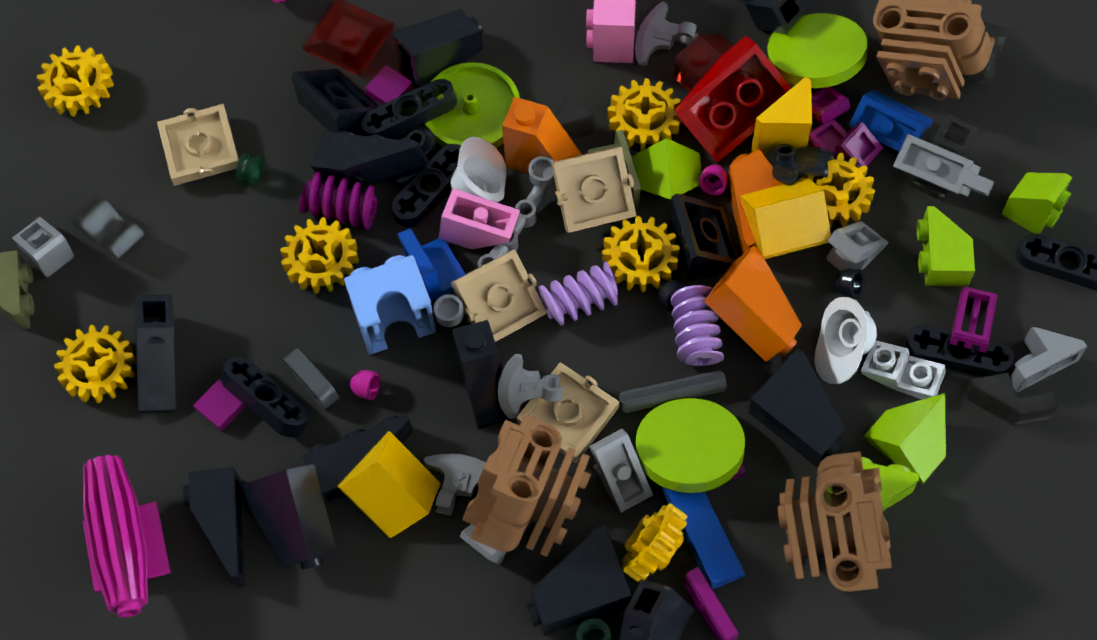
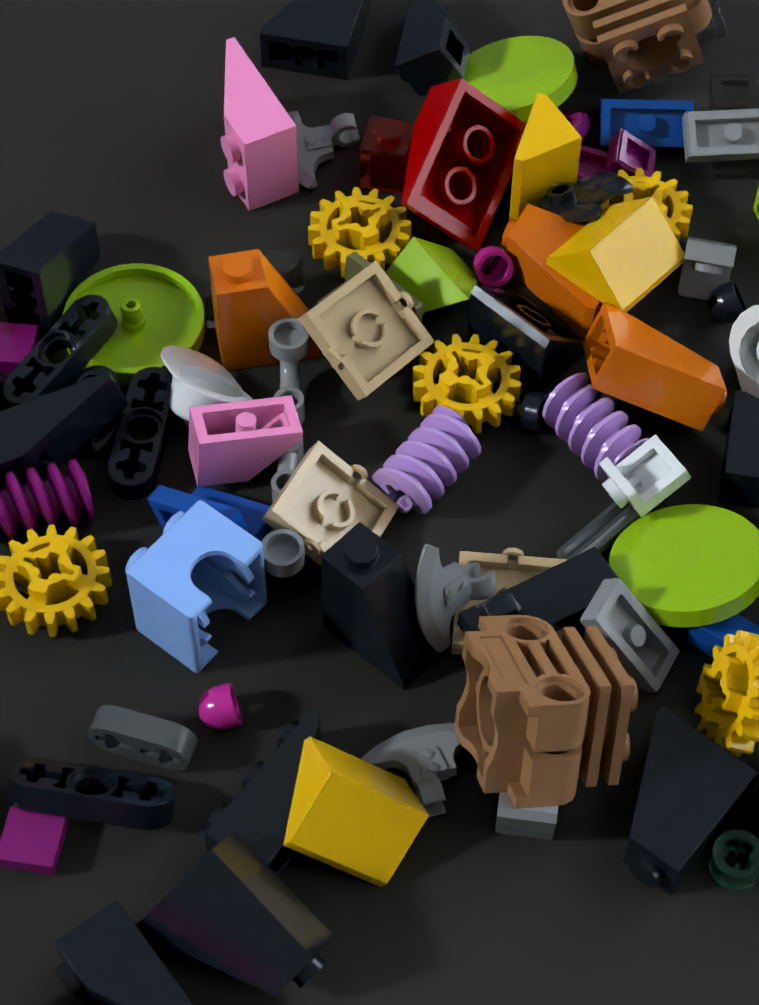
camera: 35 degrees left, 10 degrees down
(586, 422) = (554, 595): none -> black hinge
(697, 375) = (644, 476): none -> white bracket

